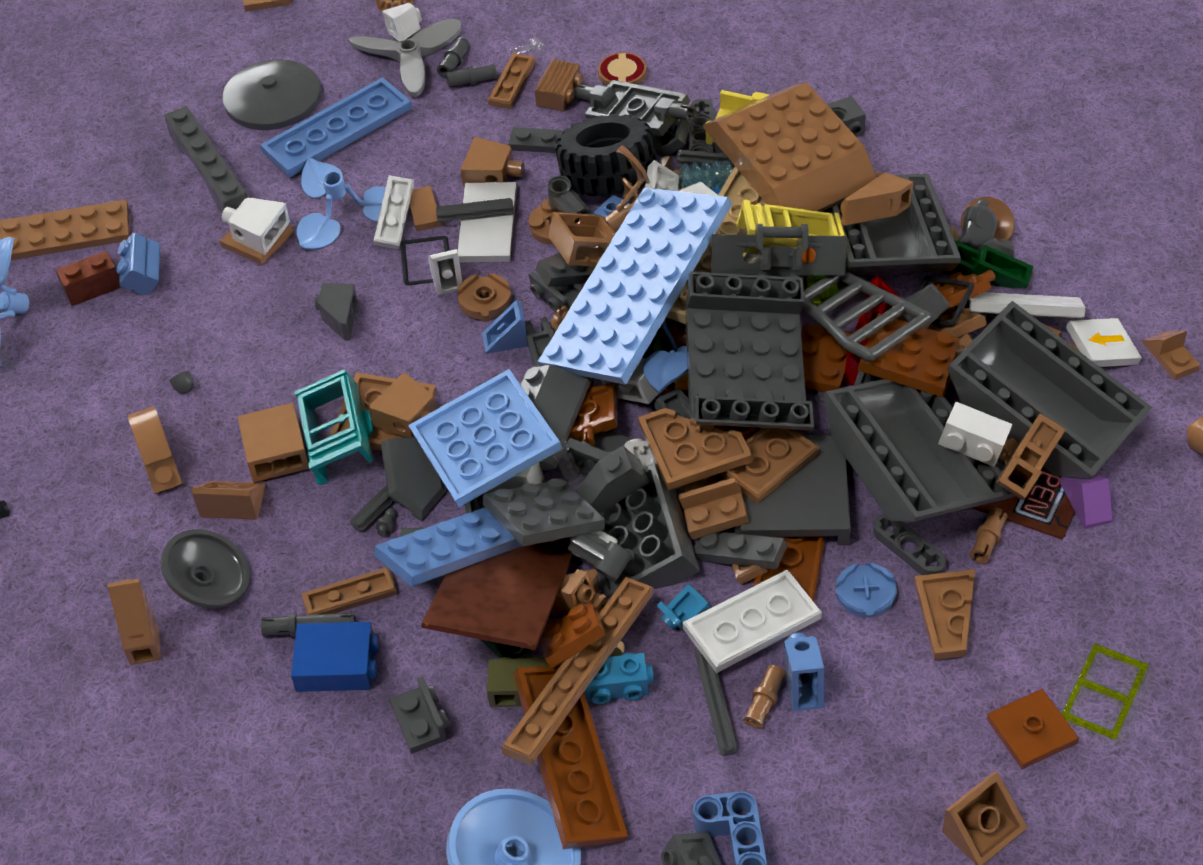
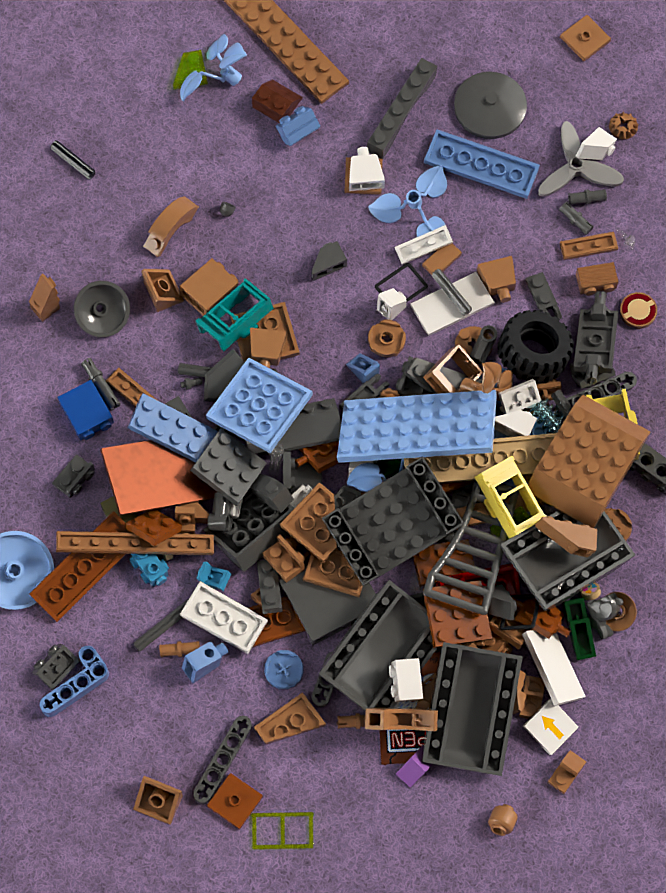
camera: 55 degrees right, 20 degrees up
(809, 257) = (478, 500): dark grey piece -> none
(959, 702) = (224, 749): none -> dark grey beam

